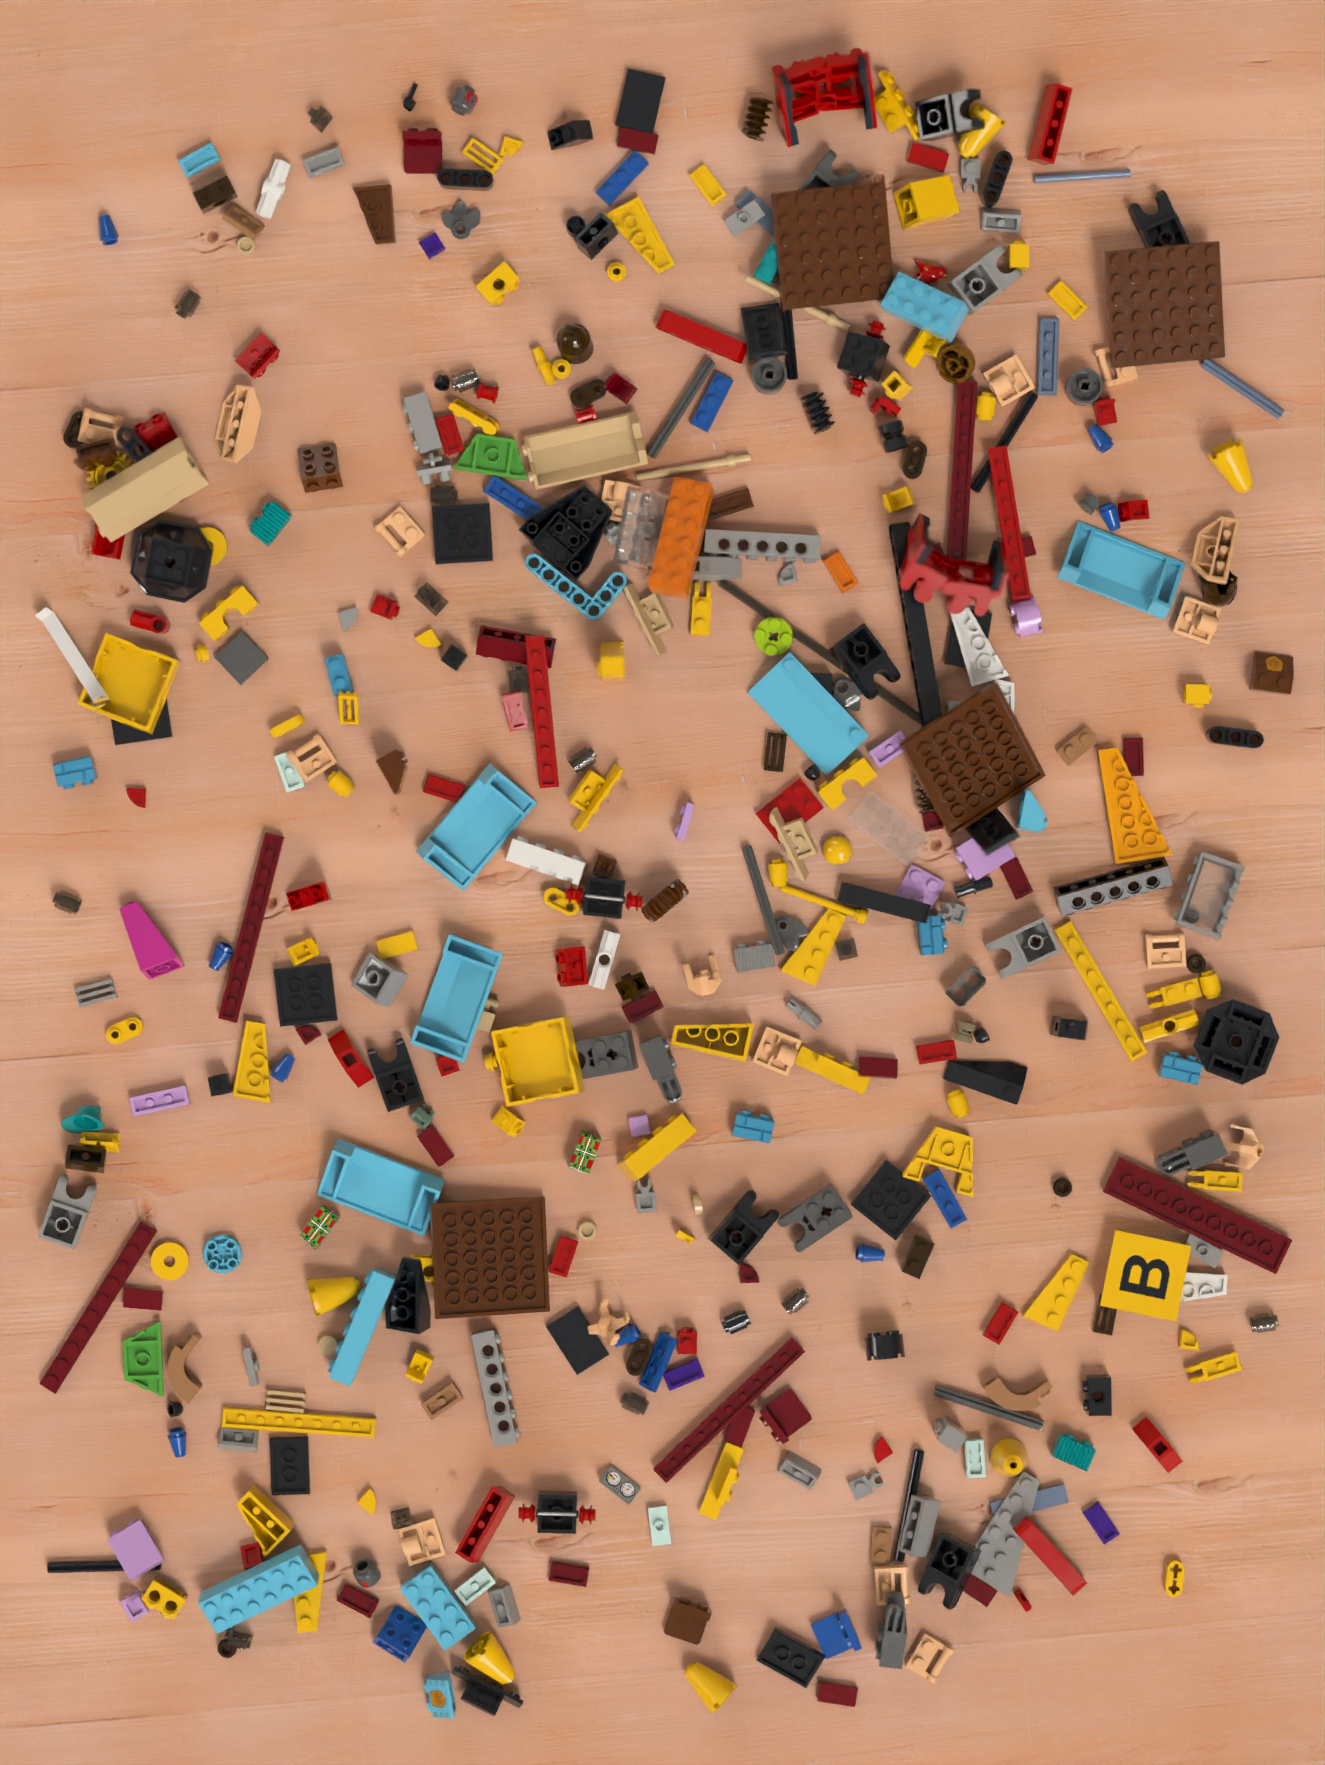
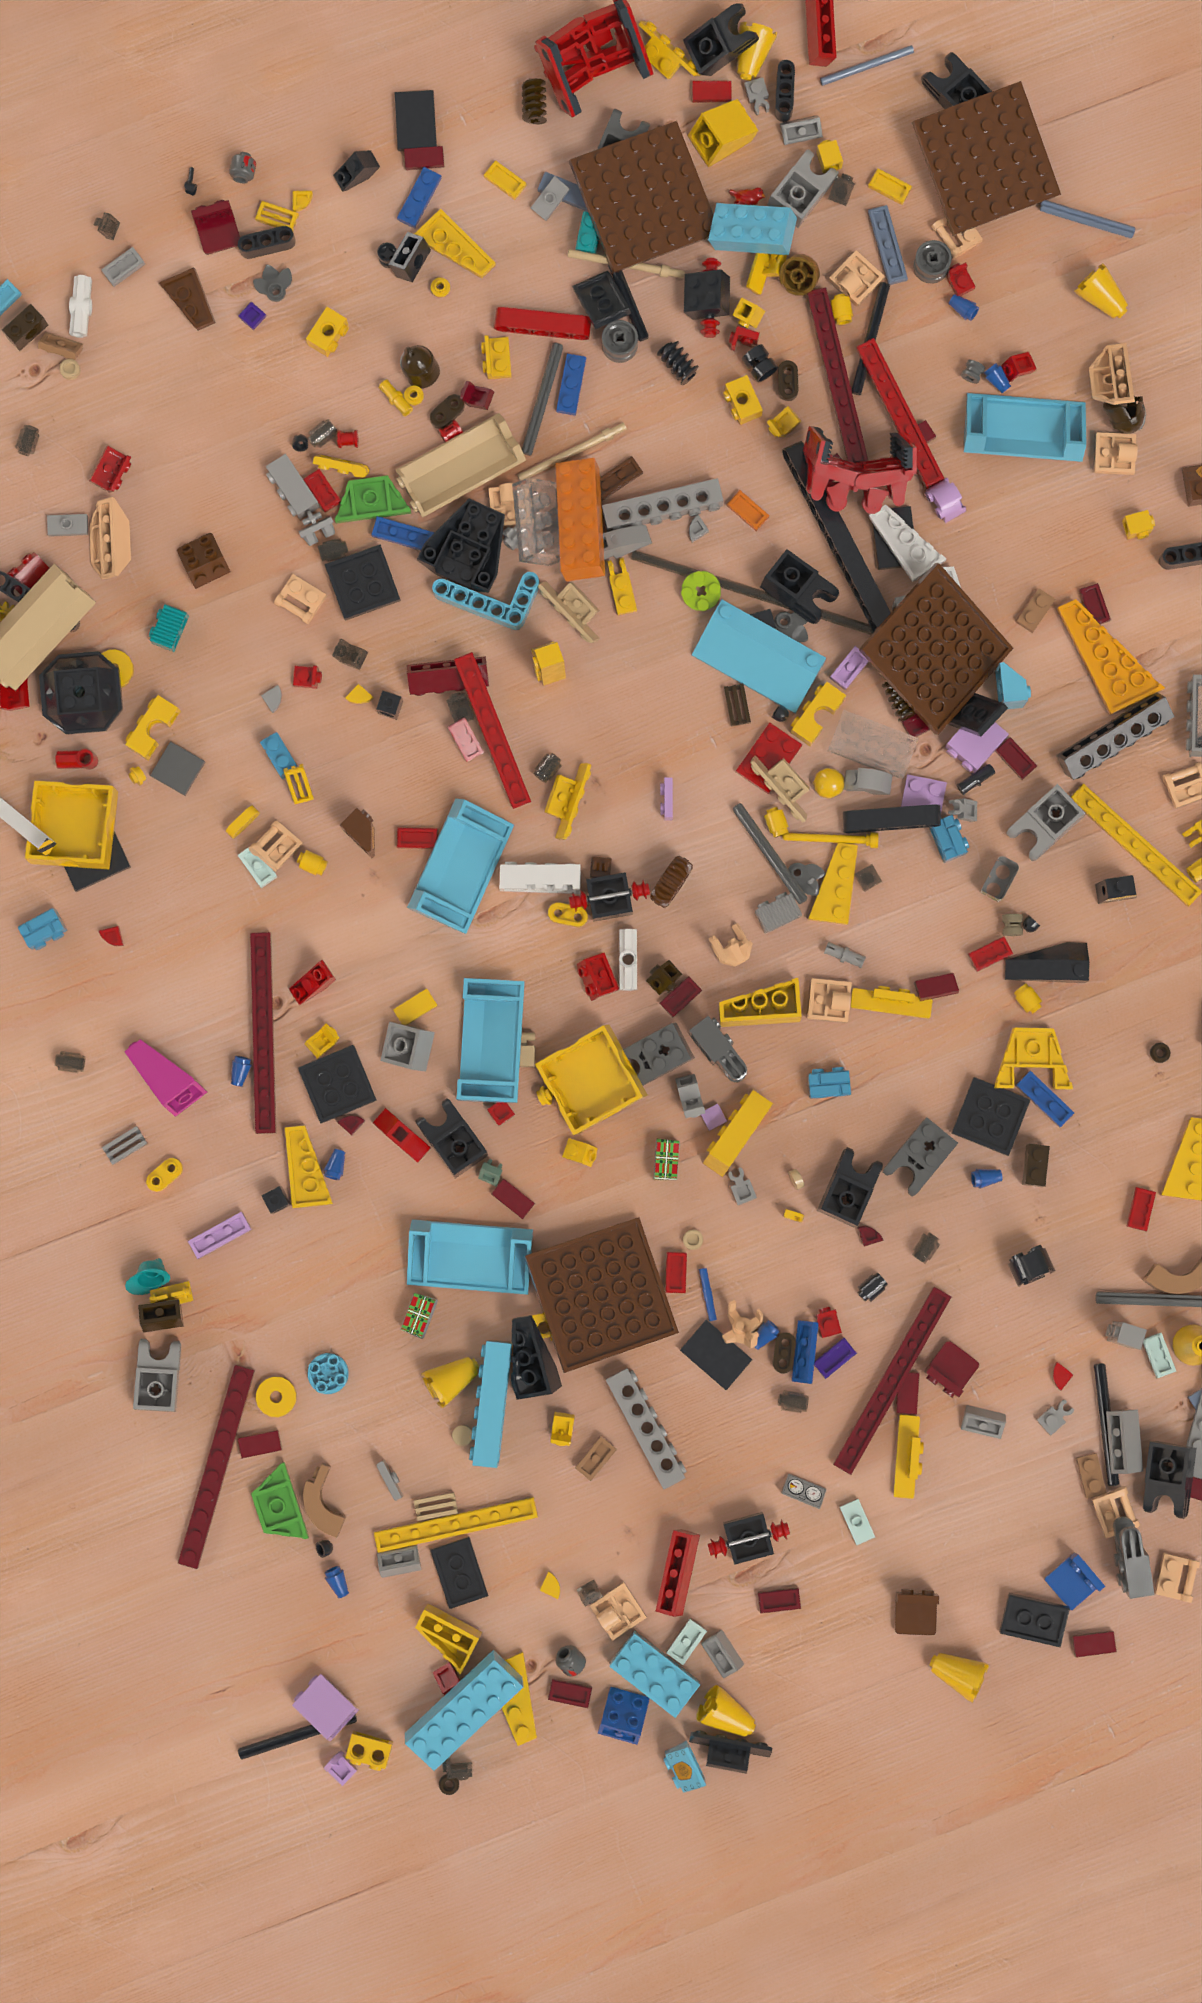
camera: 15 degrees left, 5 degrees down
(203, 396) = (67, 525): none -> light grey plate
(586, 1283) = (707, 1292): none -> blue piece
(623, 1101) = (690, 1096): none -> light grey brick
(650, 355) = (497, 357): none -> yellow bracket
(871, 455) = (742, 388): none -> yellow brick
(873, 860) = (868, 780): none -> light grey brick
(1021, 290) = (842, 189): none -> clear smoke bracket

